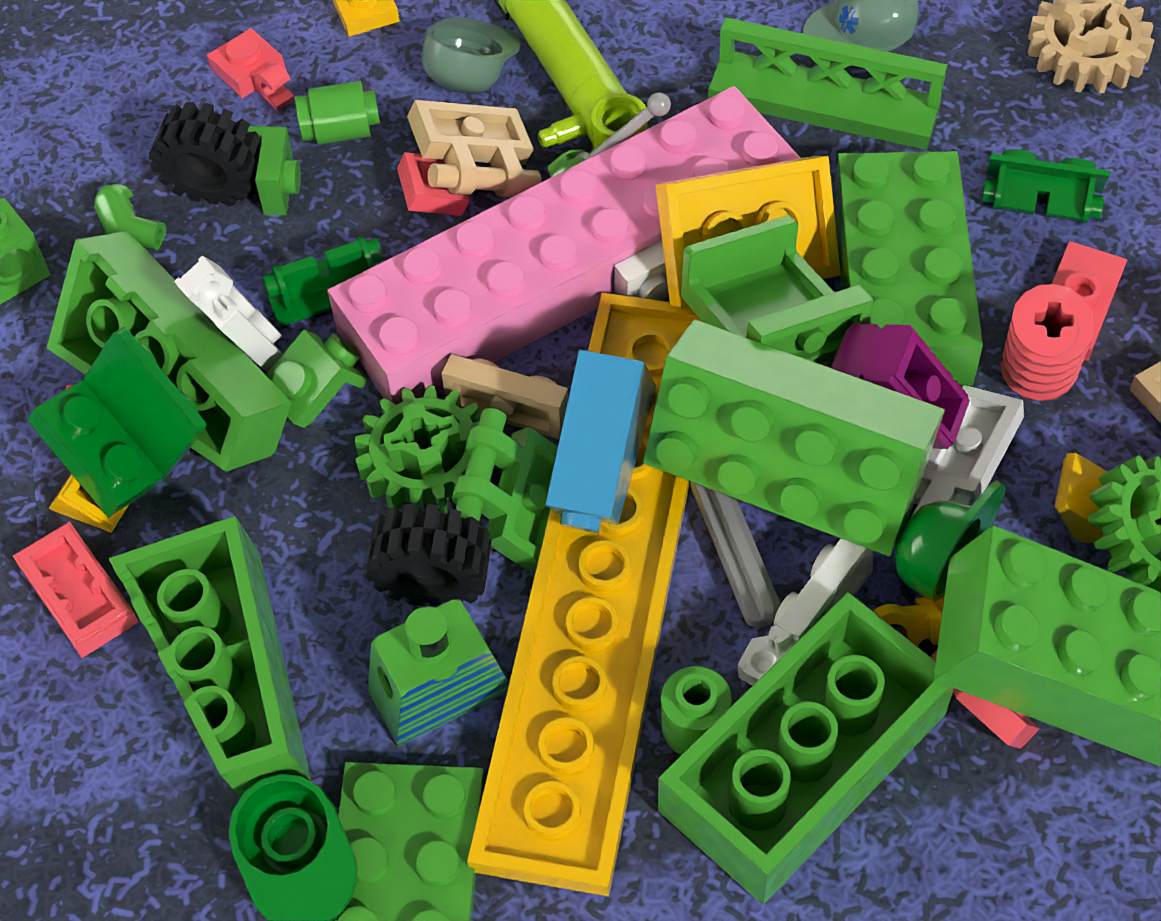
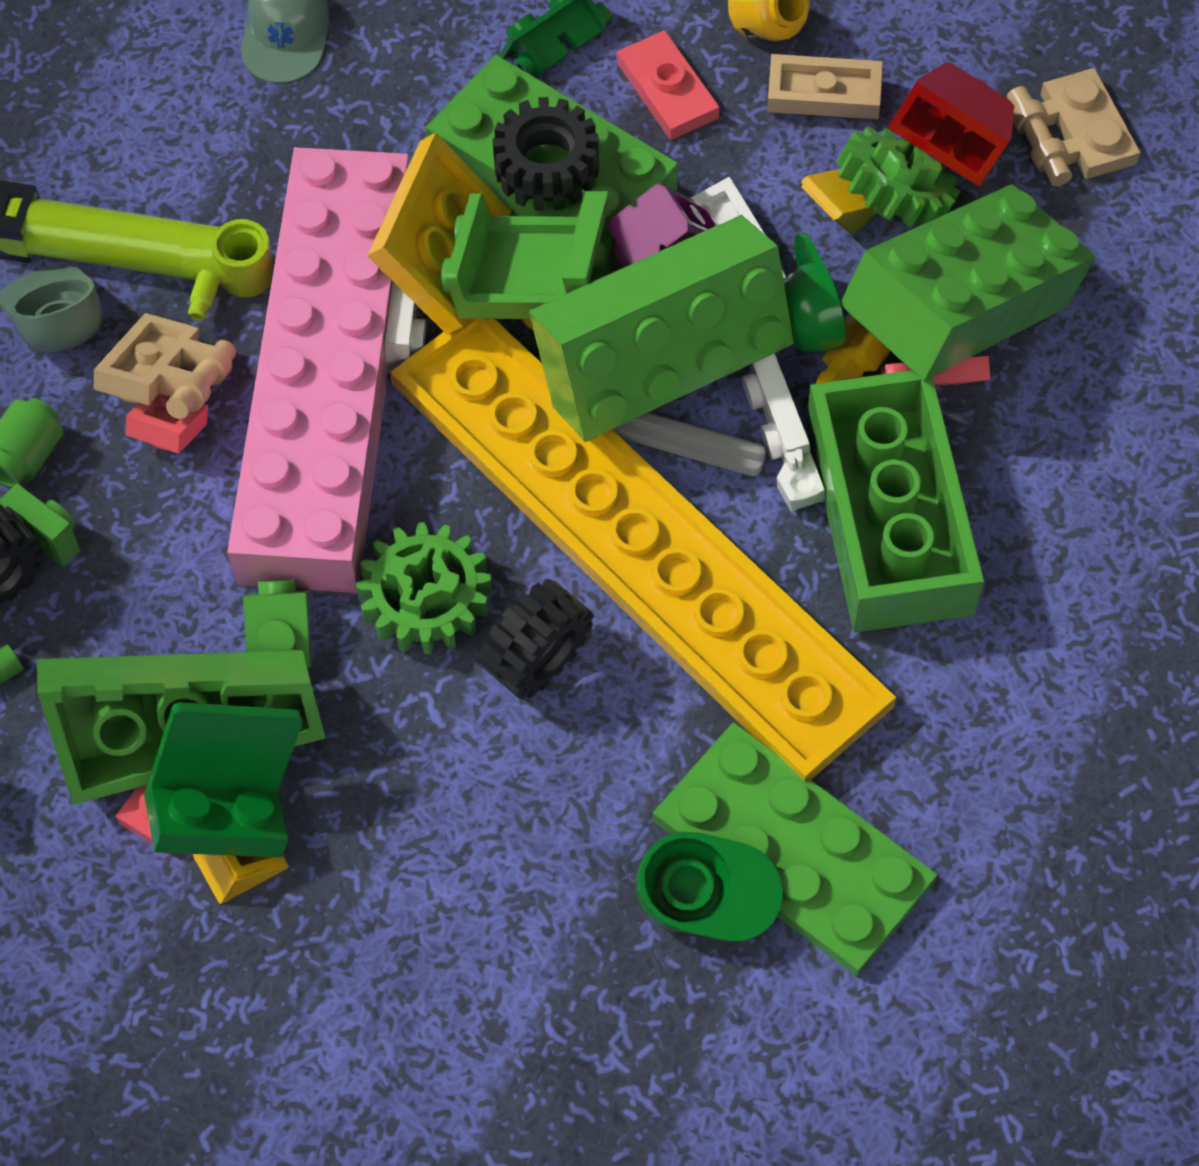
camera: 55 degrees left, 5 degrees up
(76, 589) = (329, 920): coral plate -> none
(220, 647) = (488, 836): bright green wedge -> none
(231, 312) = (192, 630): white hinge -> none
(302, 286) = (188, 559): green hinge -> none
(431, 671) = (637, 693): bright green torso -> none
(518, 503) = (516, 545): bright green plate -> none
(524, 399) = (432, 496): tan plate -> none
(600, 439) = (548, 453): dark azure slope -> none
(657, 105) = (250, 308): light grey hinge -> none
(691, 705) = (809, 550): bright green brick -> none
(827, 92) = (332, 99): bright green fence -> none
(883, 212) = (546, 127): none -> black tyre
(1046, 342) = (708, 124): coral piece -> none

